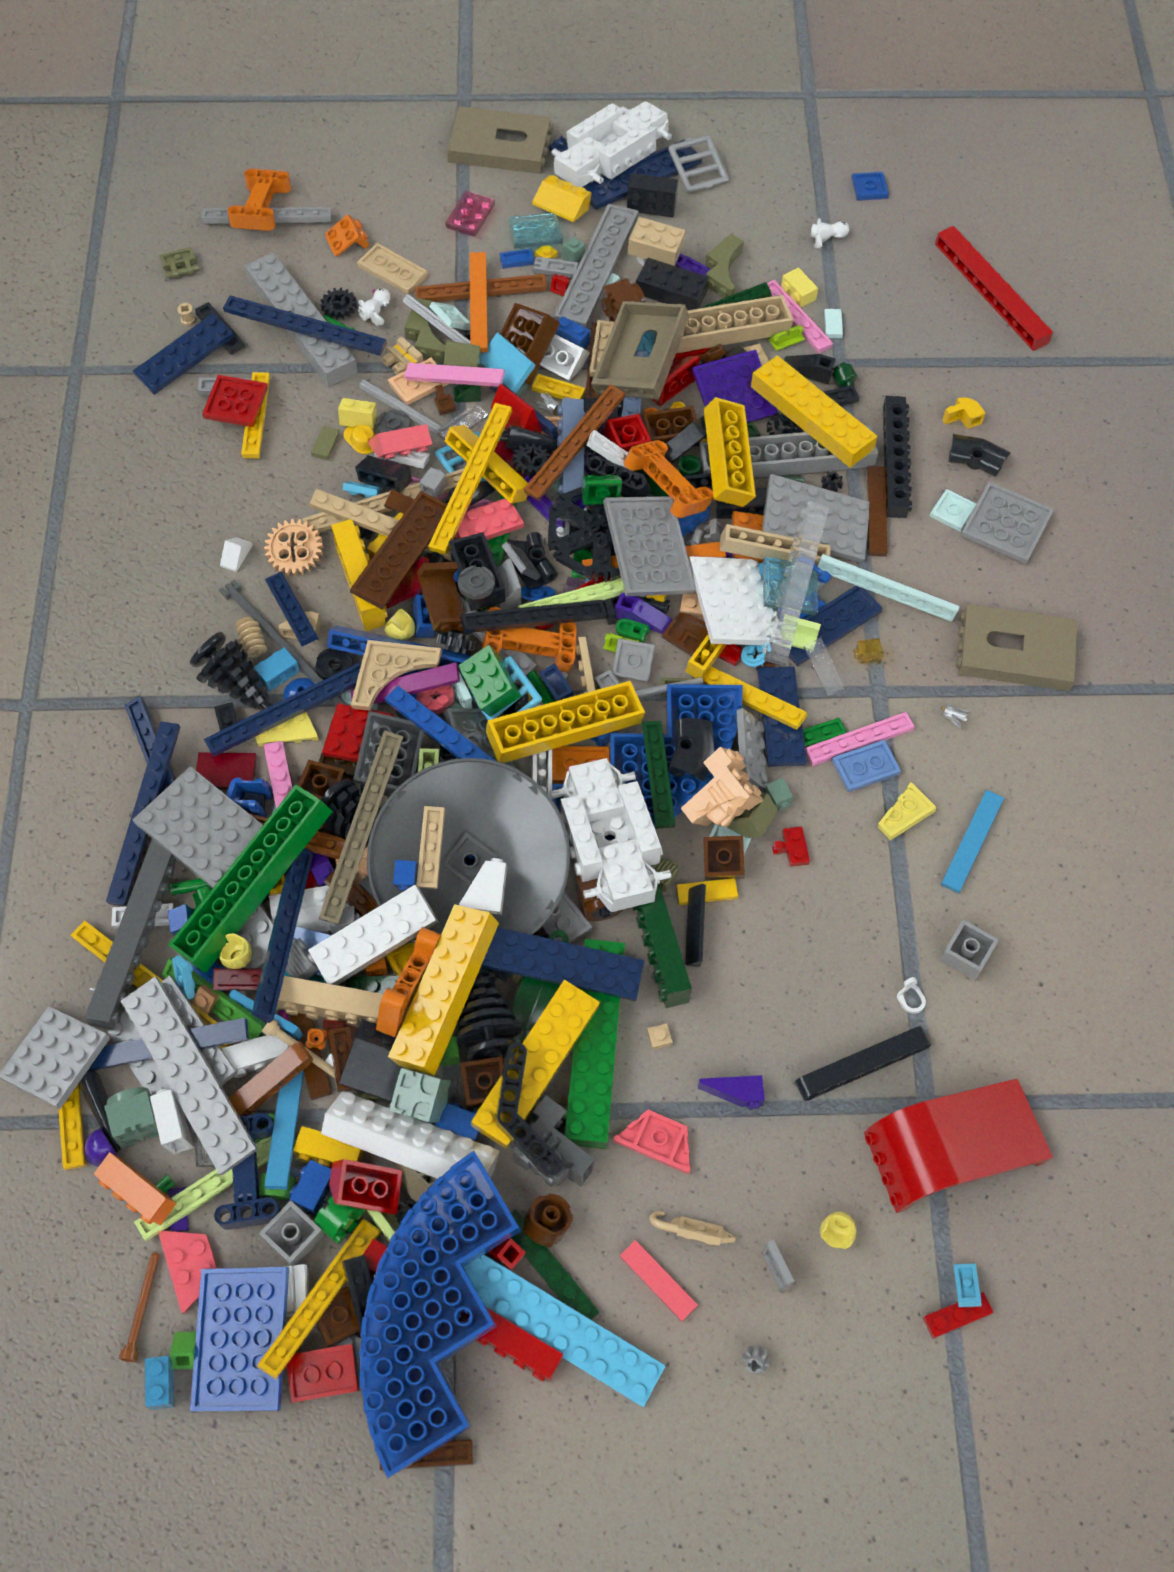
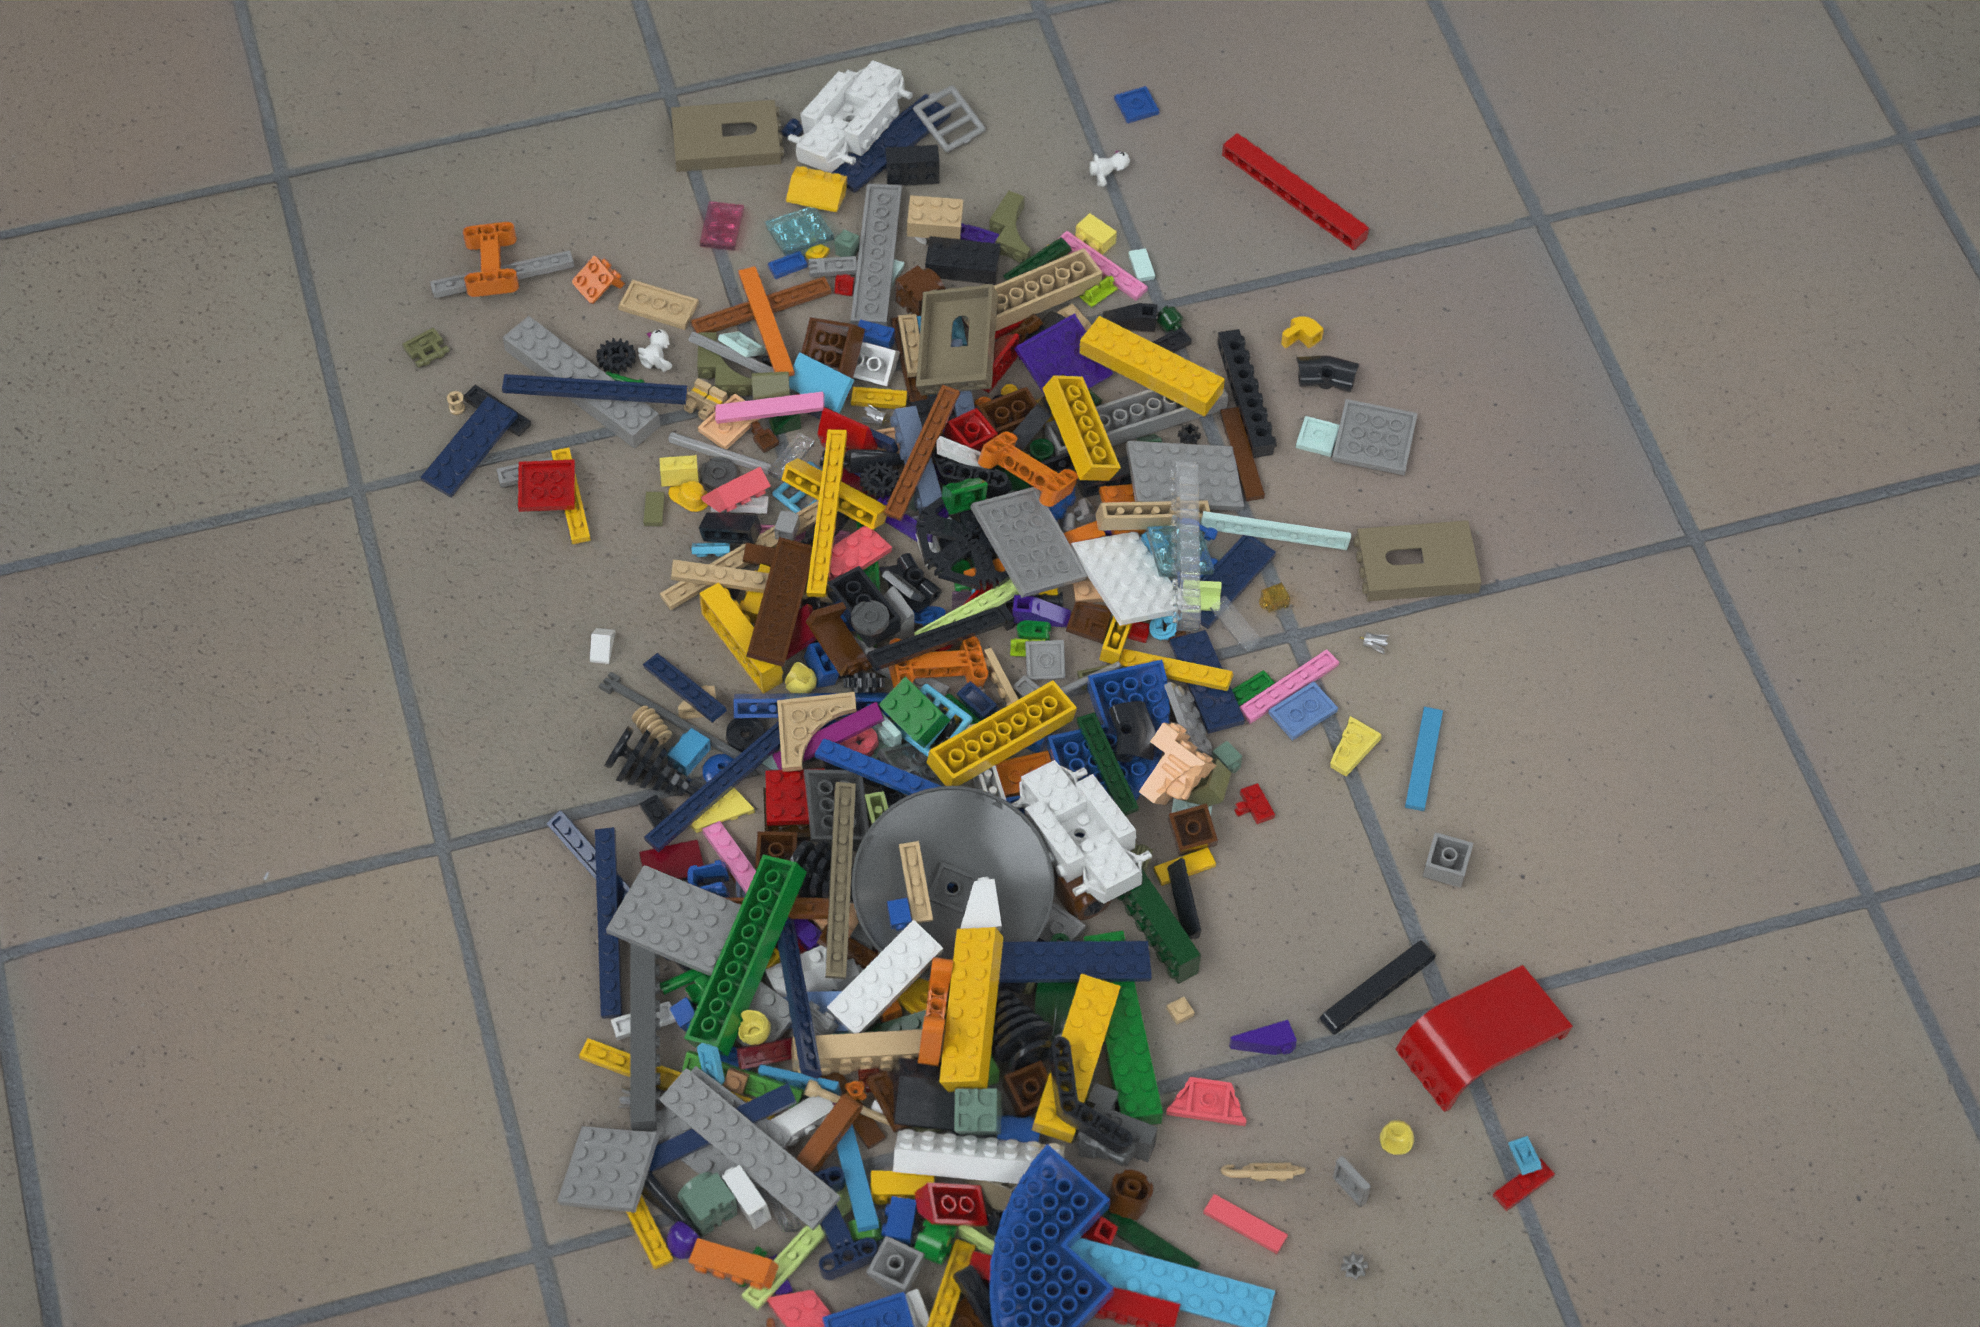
camera: 15 degrees left, 5 degrees down
(277, 549) = (678, 620): light nougat gear -> none
(782, 424) = (1121, 386): black gear -> none
(911, 983) = (1401, 903): white piece -> none

